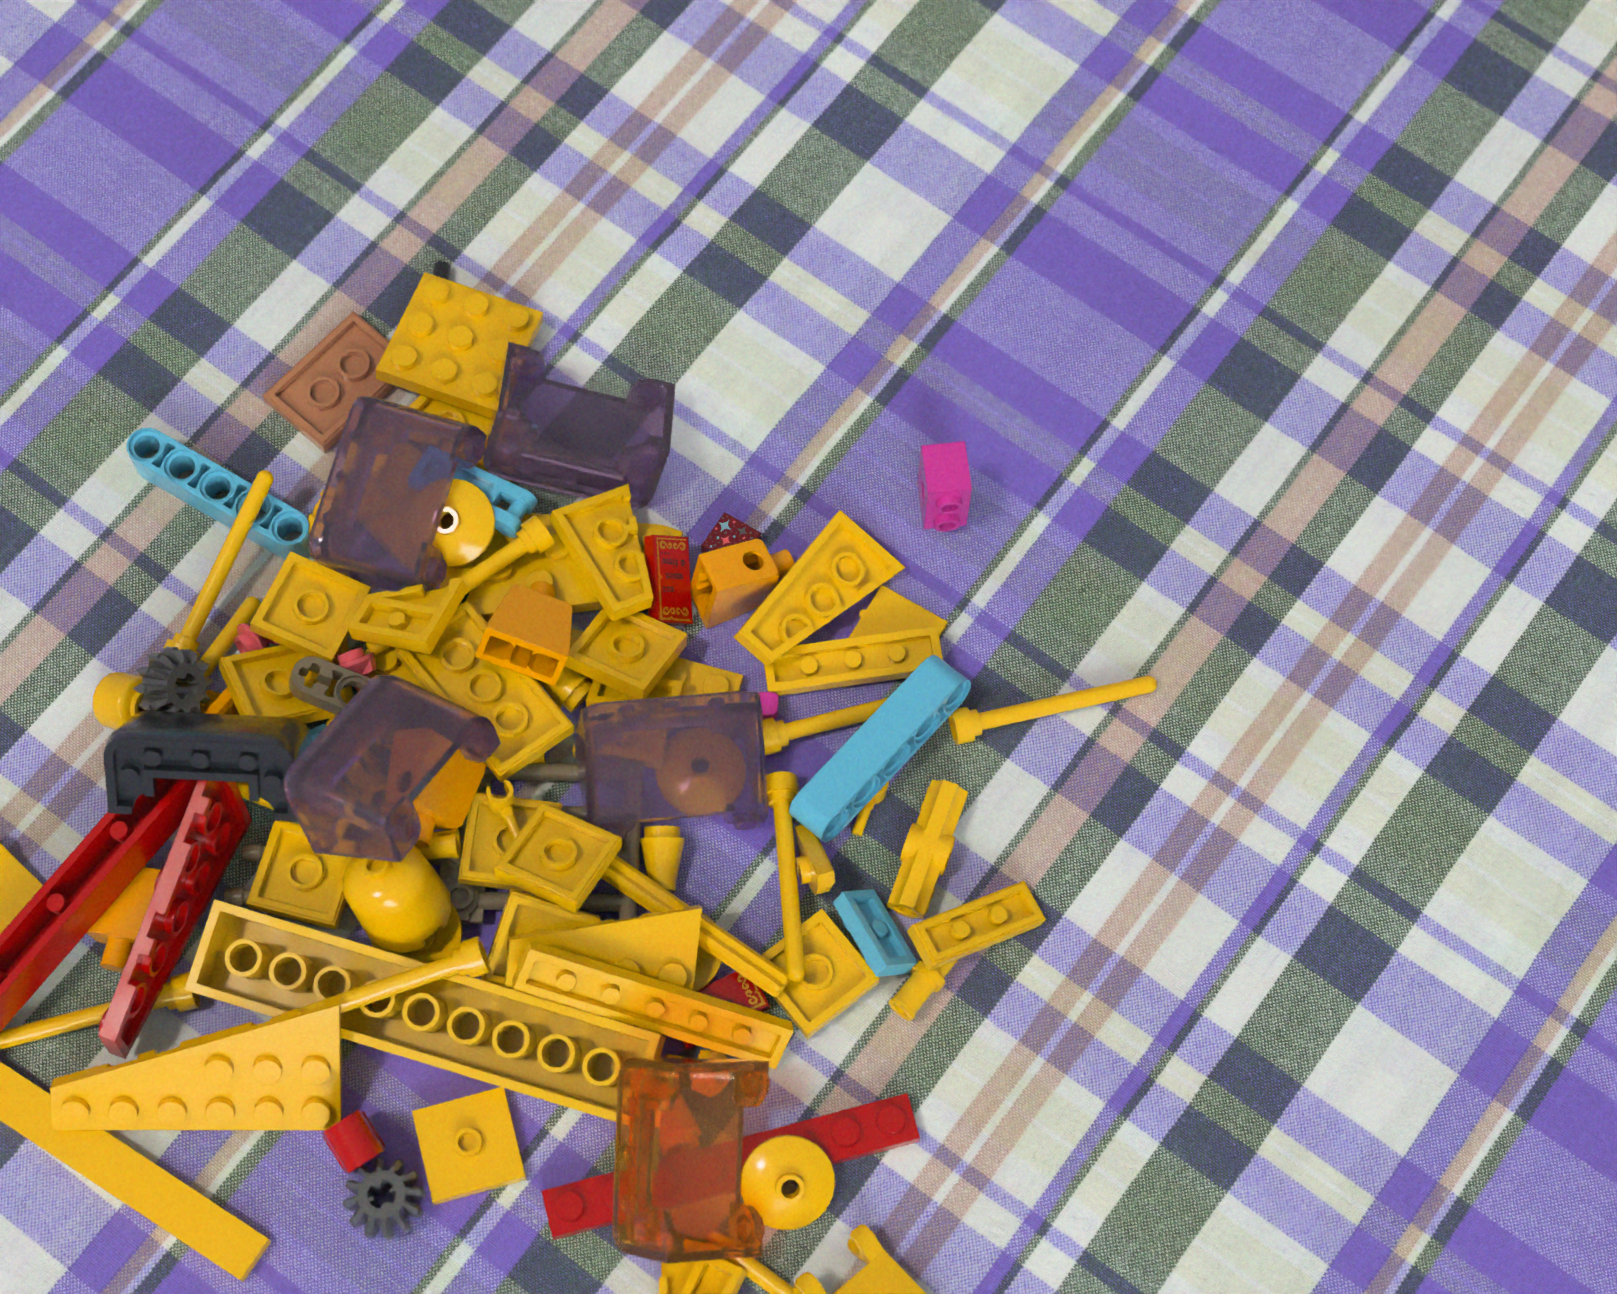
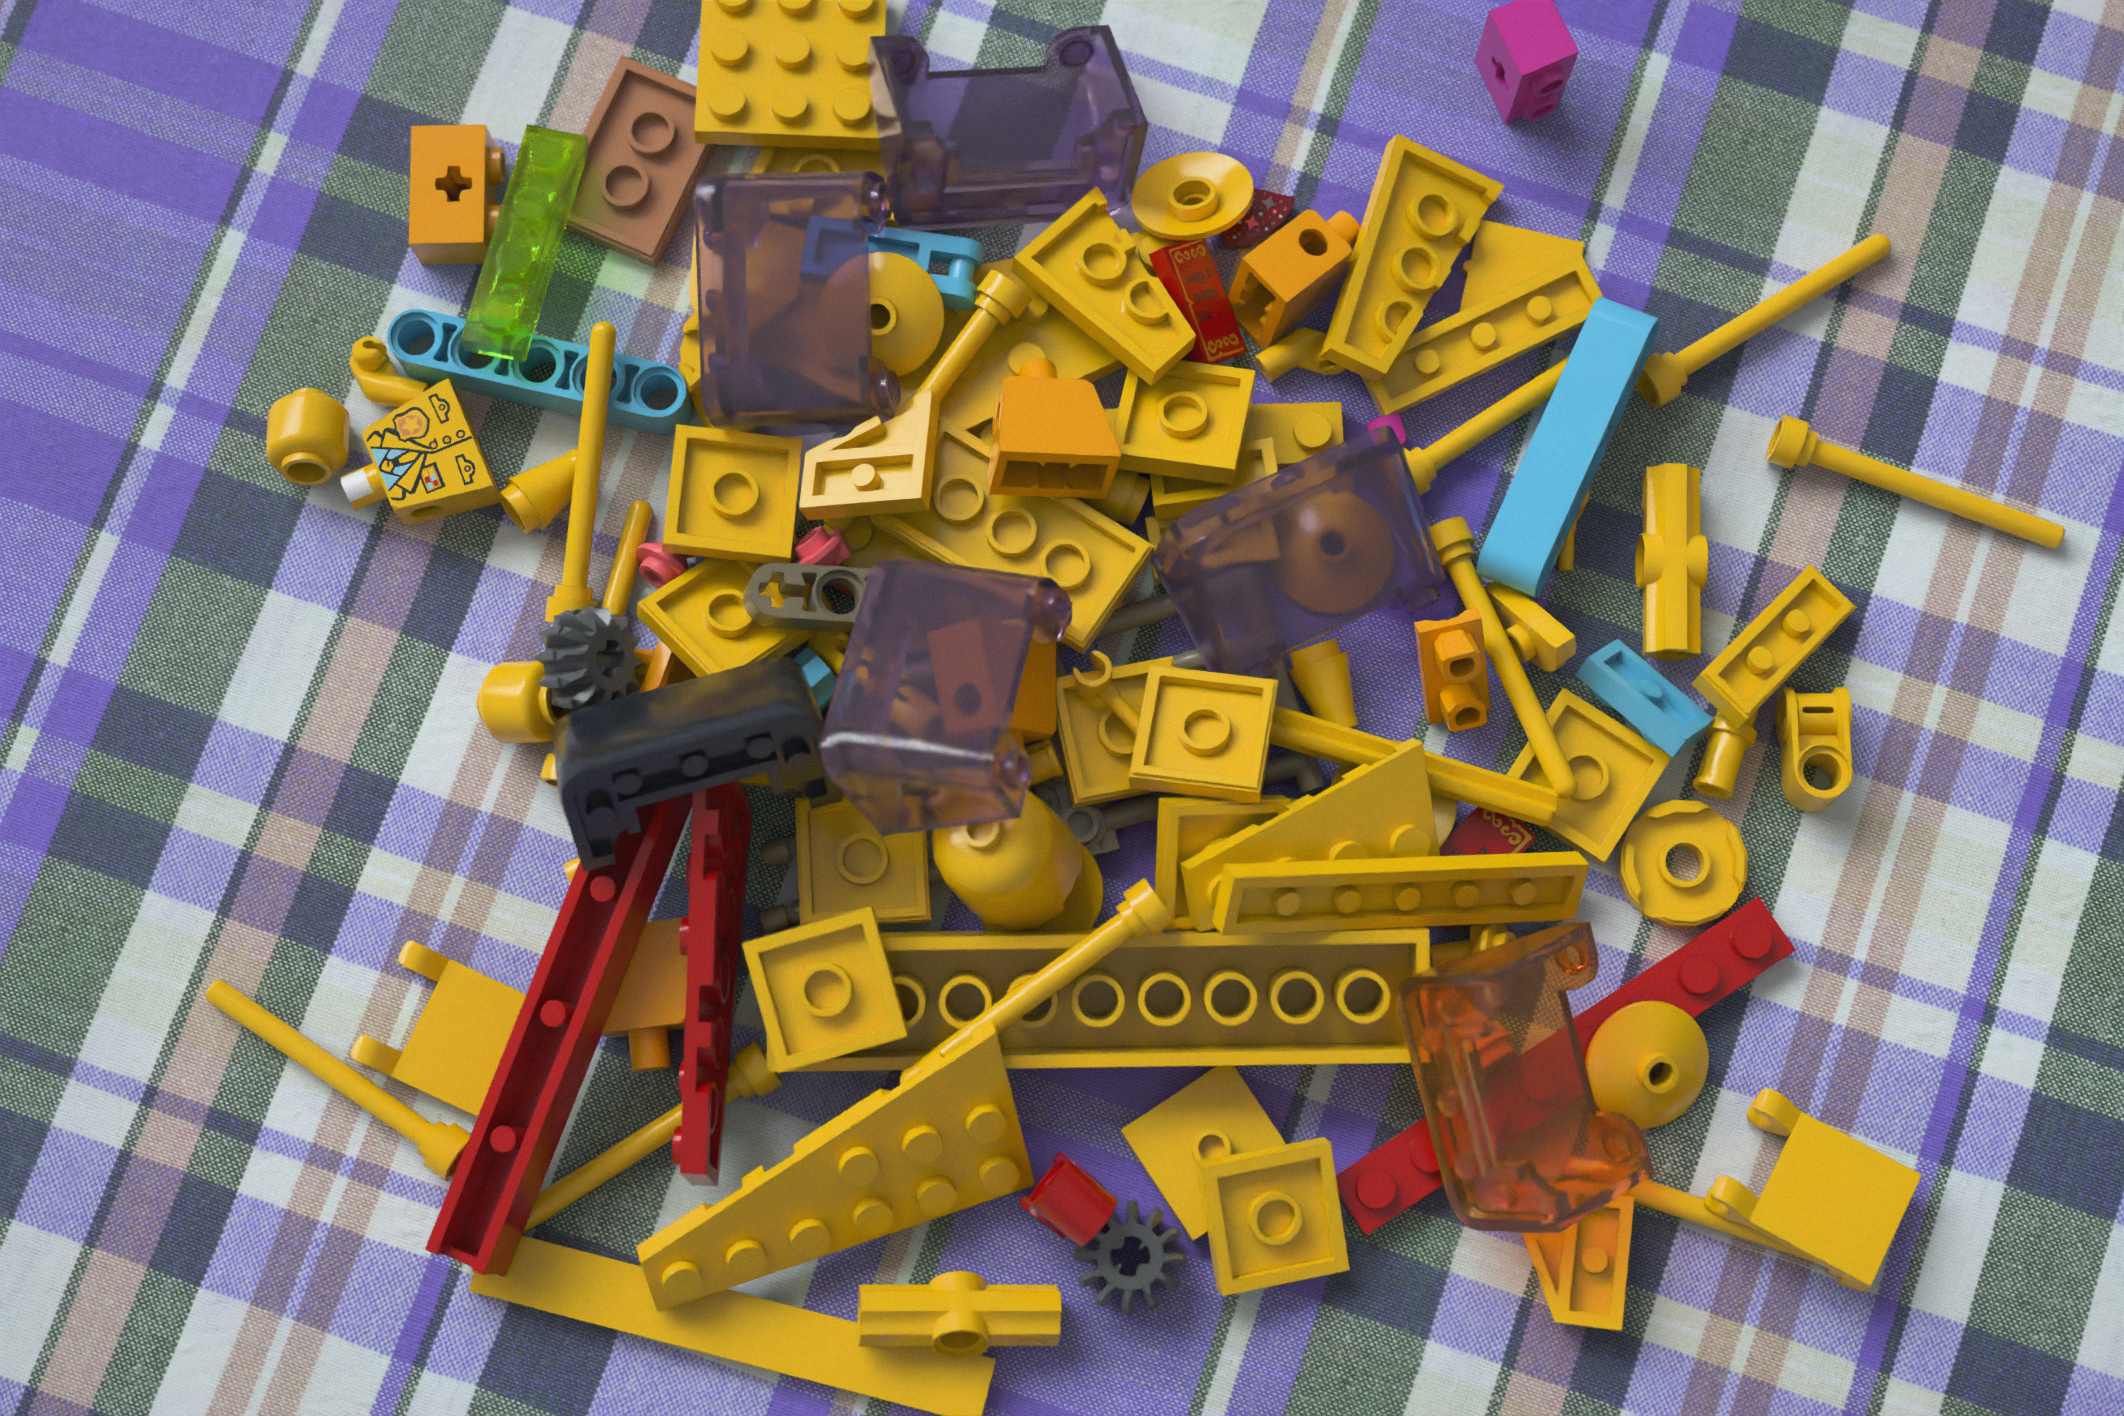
camera: 15 degrees left, 10 degrees up
(54, 489) = (308, 436): none -> yellow head
(117, 471) = (378, 376): none -> yellow arm
(123, 528) = (424, 461): none -> yellow torso
(187, 571) = (539, 493): none -> yellow cone
(209, 366) = (440, 165): none -> light orange brick
(239, 942) = (825, 989): none -> yellow plate
(240, 408) = (525, 243): none -> clear neon green plate
(252, 1198) = (959, 1315): none -> yellow piece
(491, 1201) = (1273, 1216): none -> yellow plate
(691, 510) = (1192, 196): none -> yellow dish
(722, 633) = (1299, 350): none -> yellow arm
(749, 872) = (1453, 670): none -> light orange hips
(858, 1082) = (1652, 887): none -> yellow tile
(983, 996) = (1816, 733): none -> yellow piece
(1043, 798) = (1798, 445): none -> yellow piece

